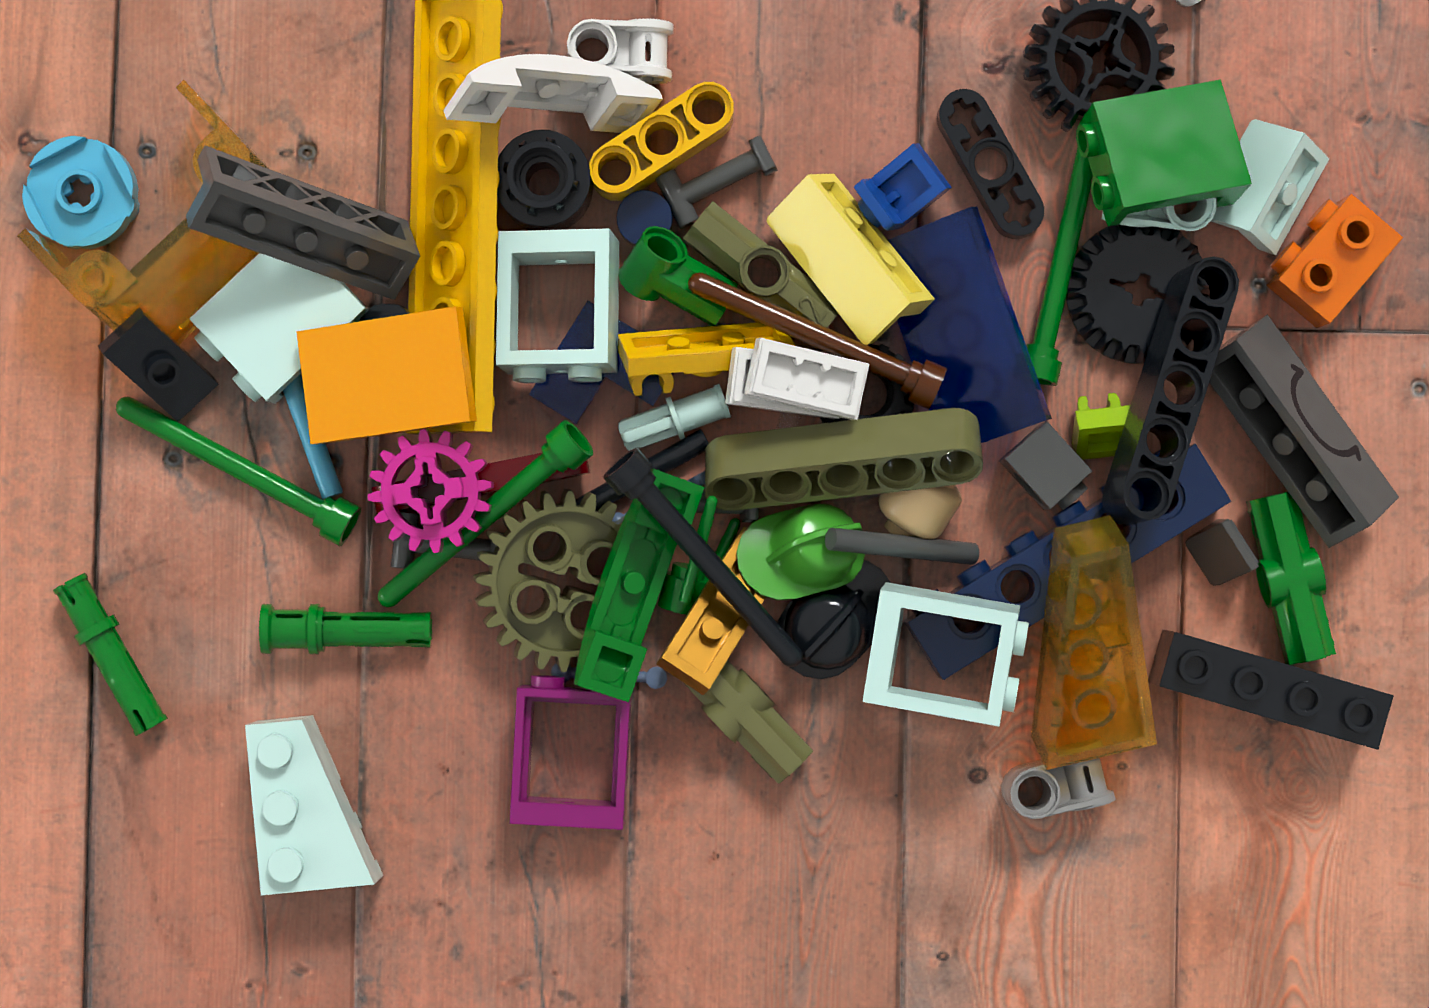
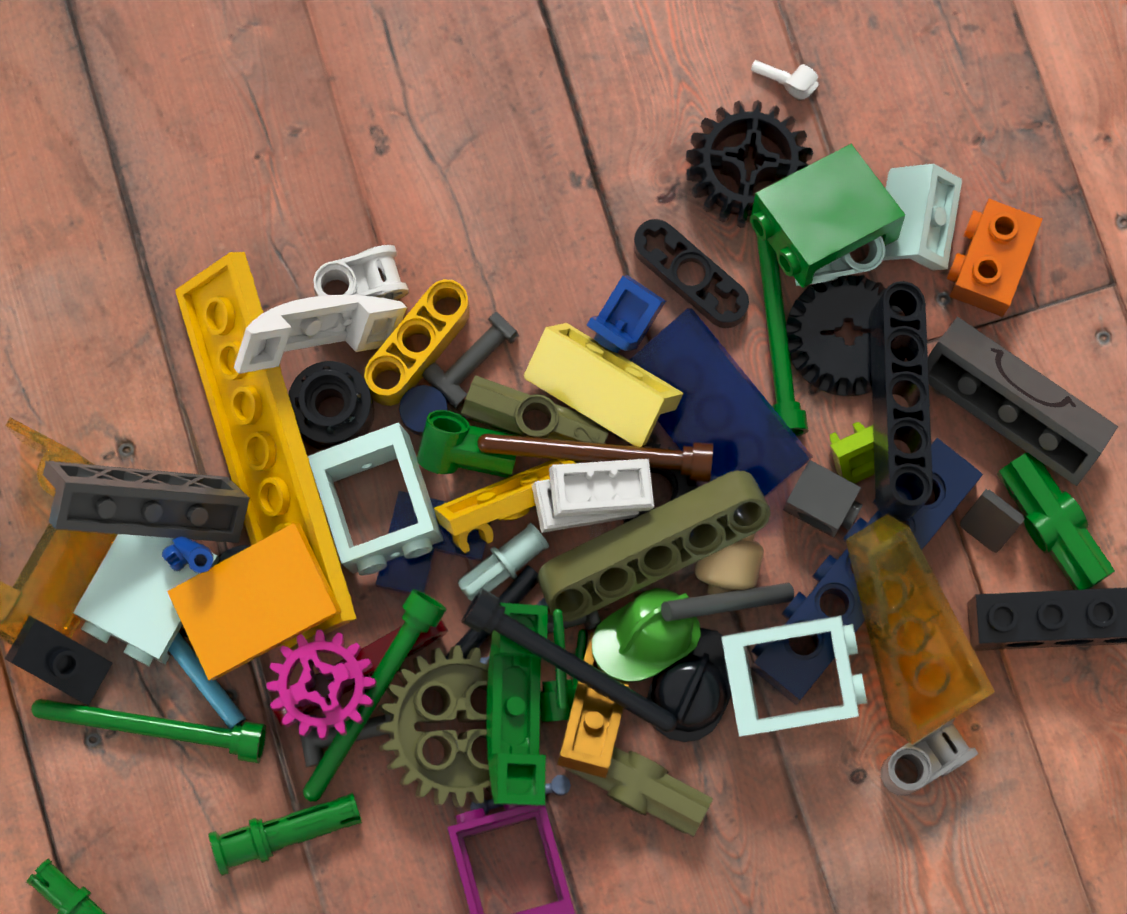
camera: 25 degrees left, 10 degrees down
(332, 296) = (187, 551): none -> blue arm

